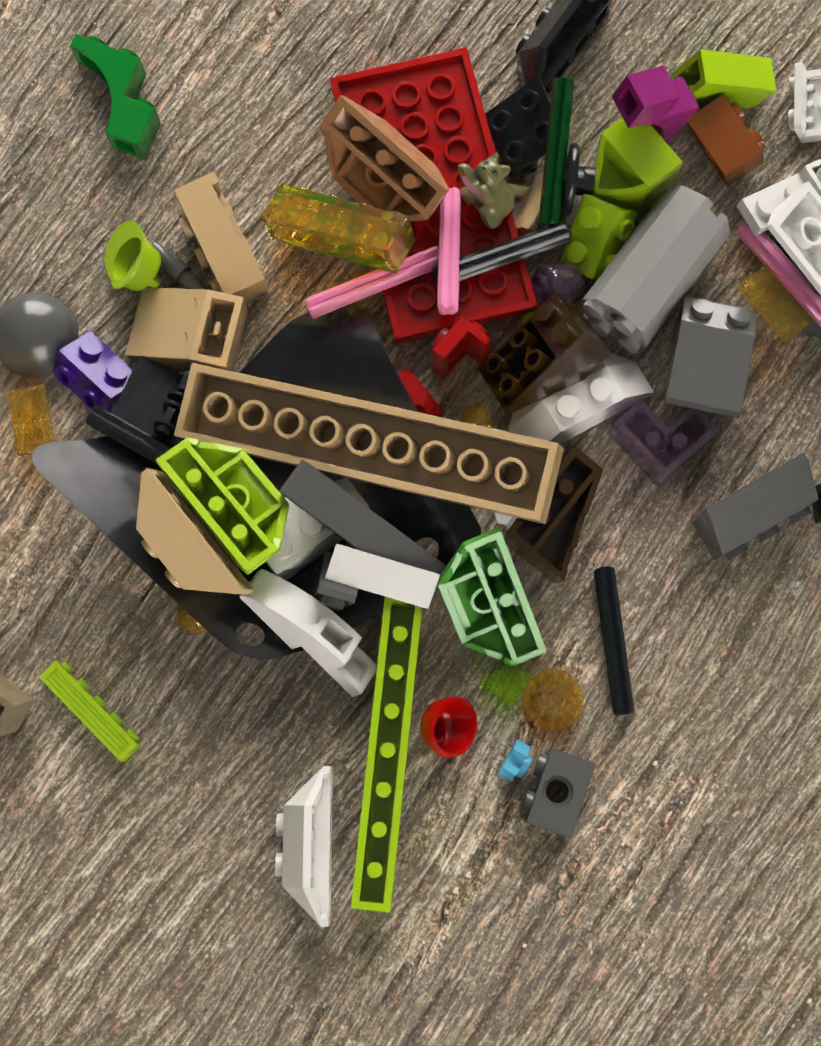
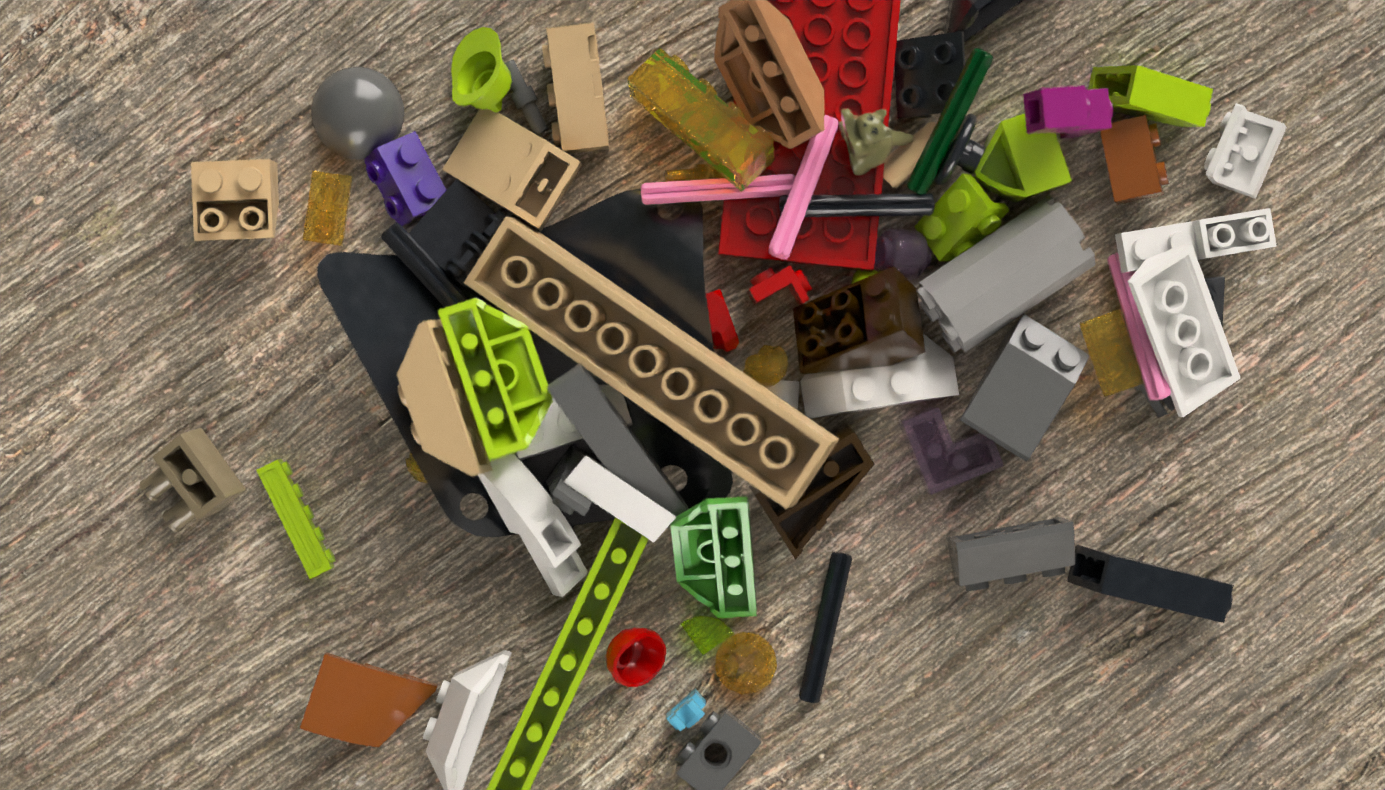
camera: 15 degrees right, 10 degrees up
(206, 861) = (362, 701): none -> dark orange slope

